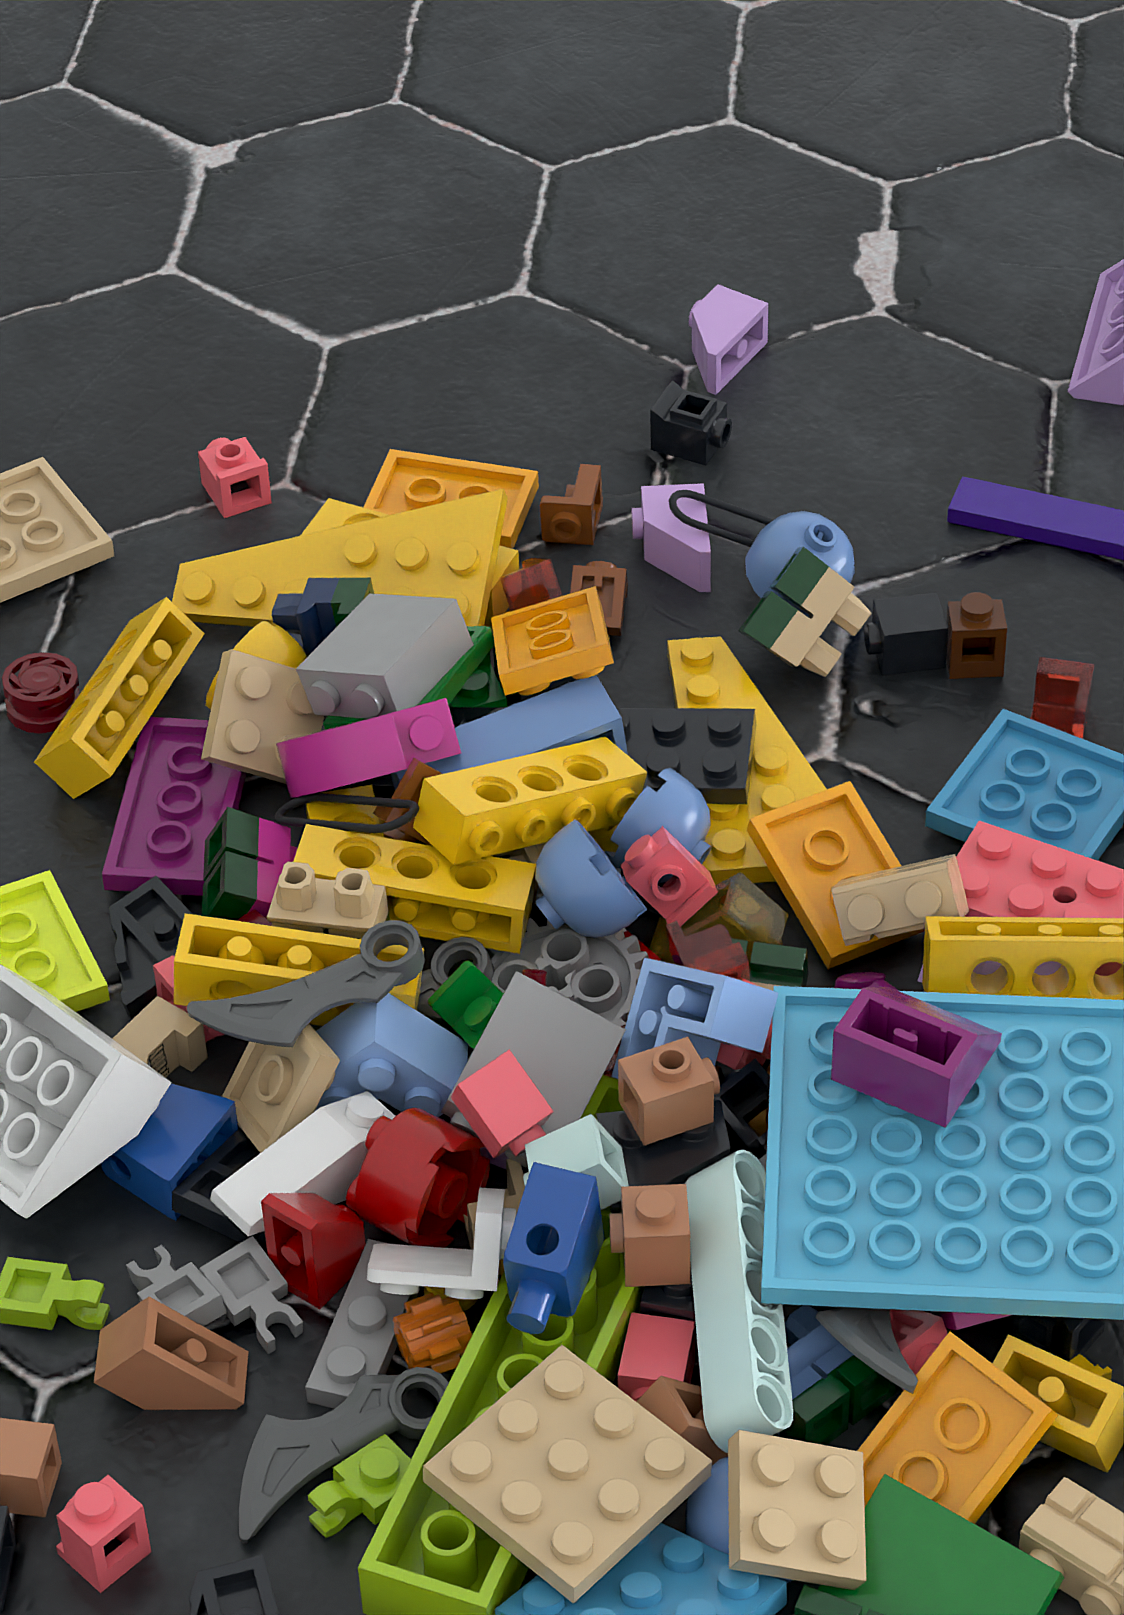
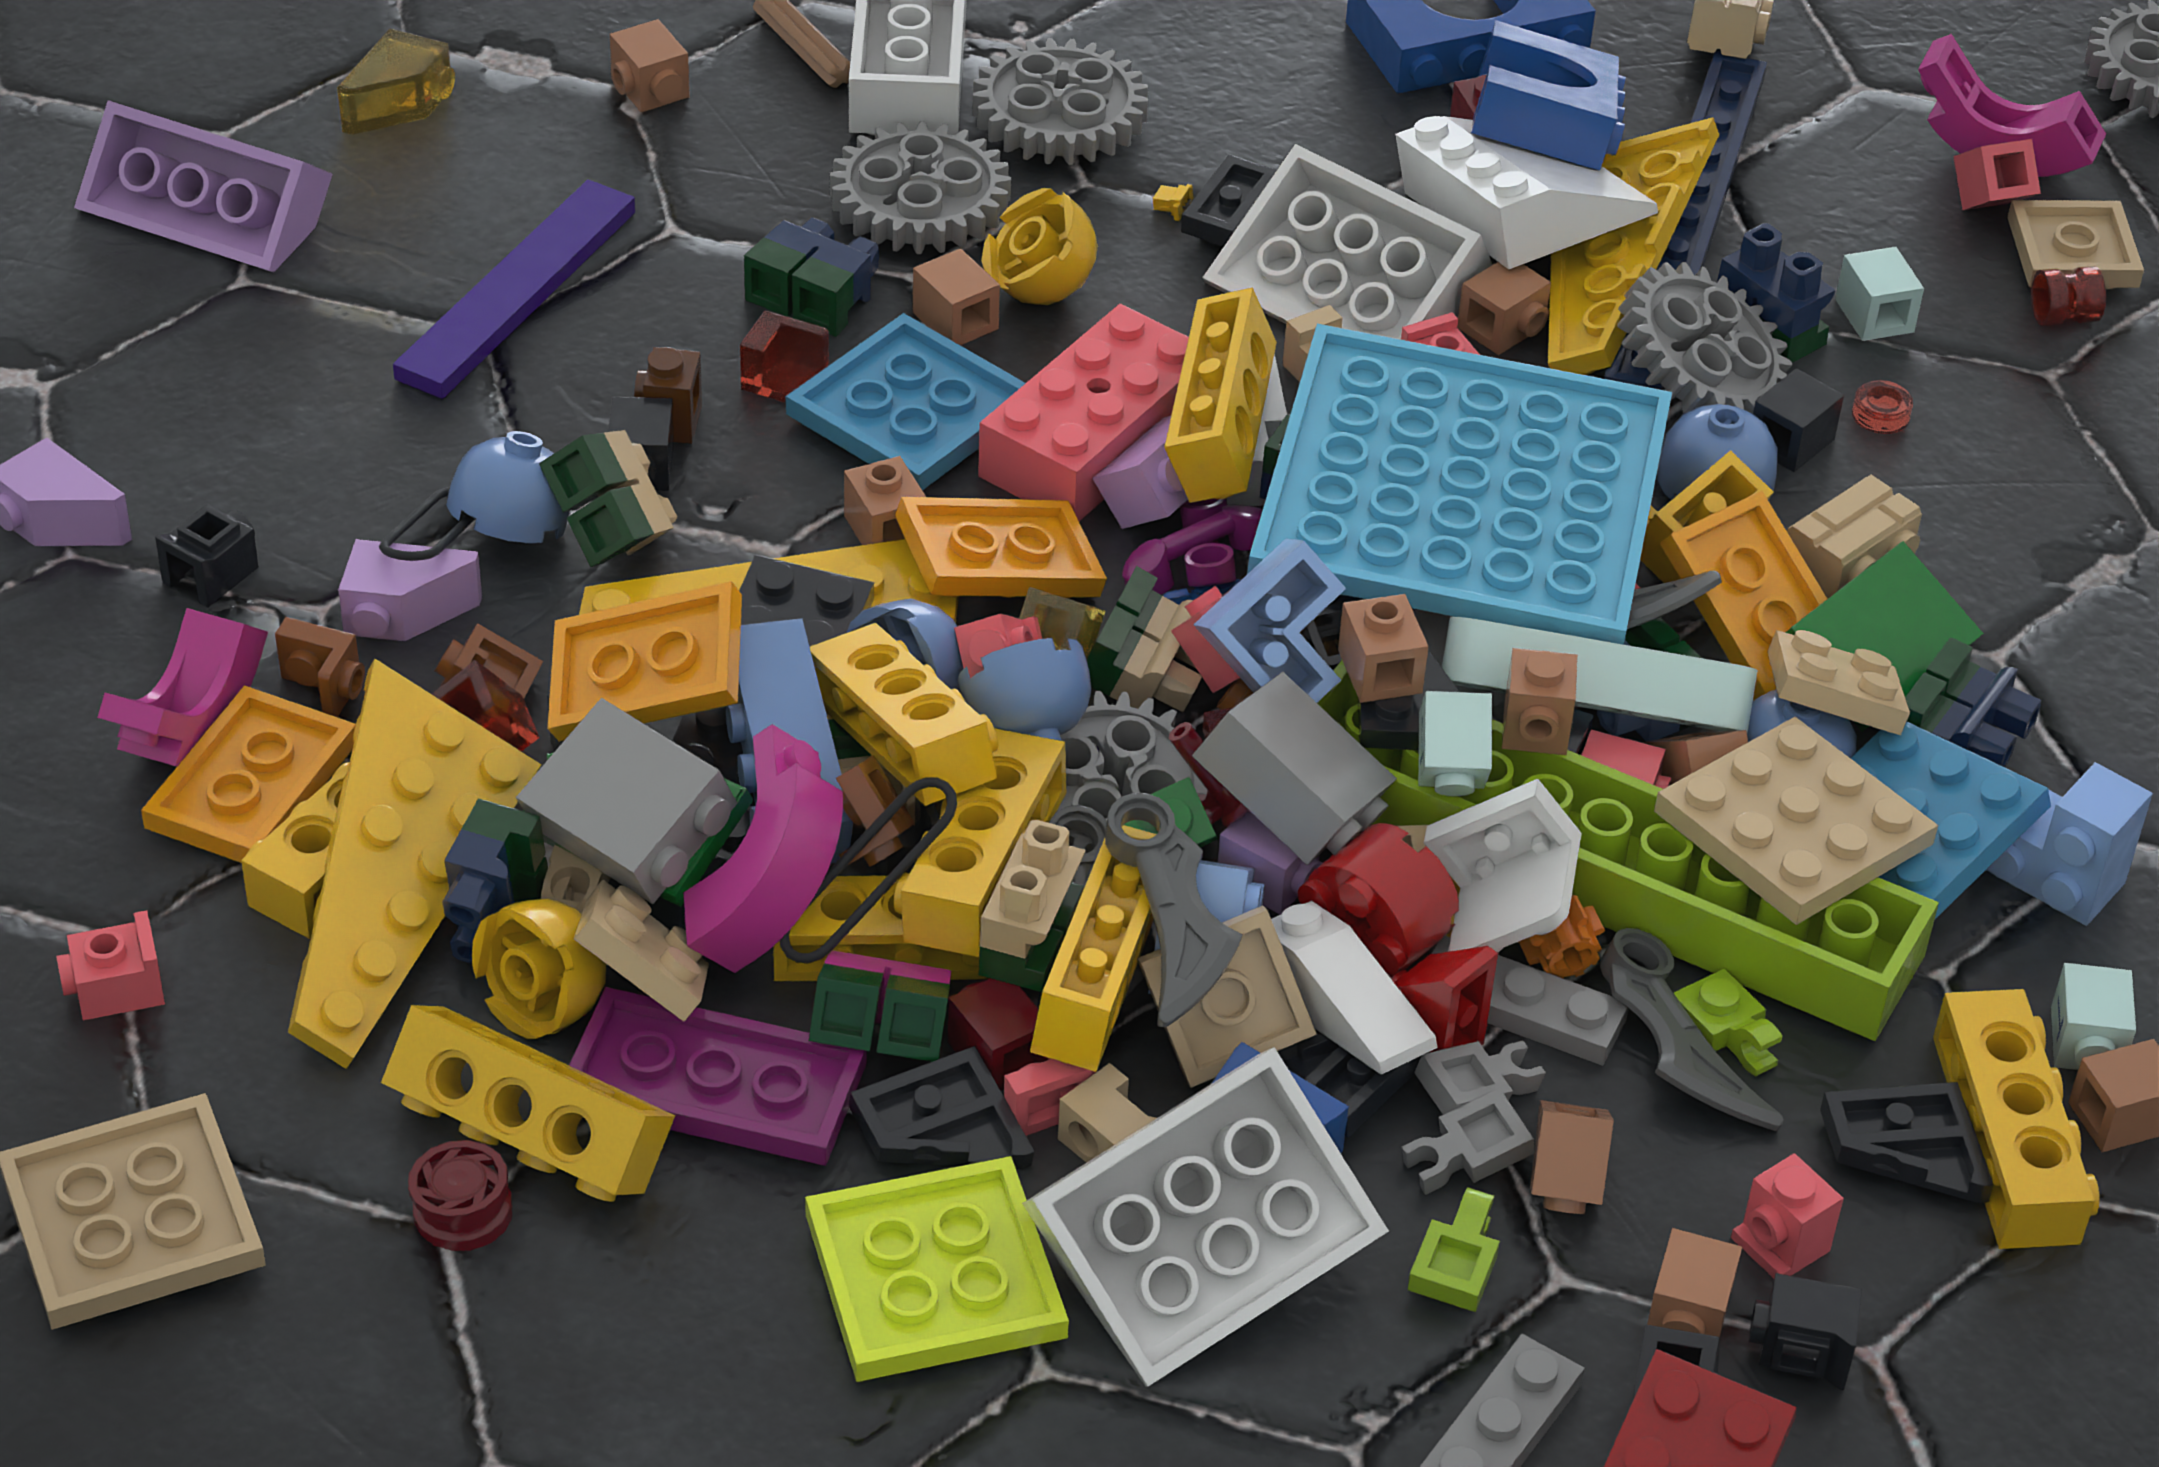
camera: 85 degrees left, 0 degrees up
(503, 1105) = (1373, 772): coral brick -> none
(548, 445) = (202, 678): none -> dark pink arch
(552, 1246) = (1570, 757): blue torso -> none
(708, 951) = (1154, 638): clear red panel -> none
(889, 791) = (873, 498): none -> nougat brick
(898, 899) = (1100, 481): tan brick -> none
(910, 1053) = (1389, 456): magenta slope -> none

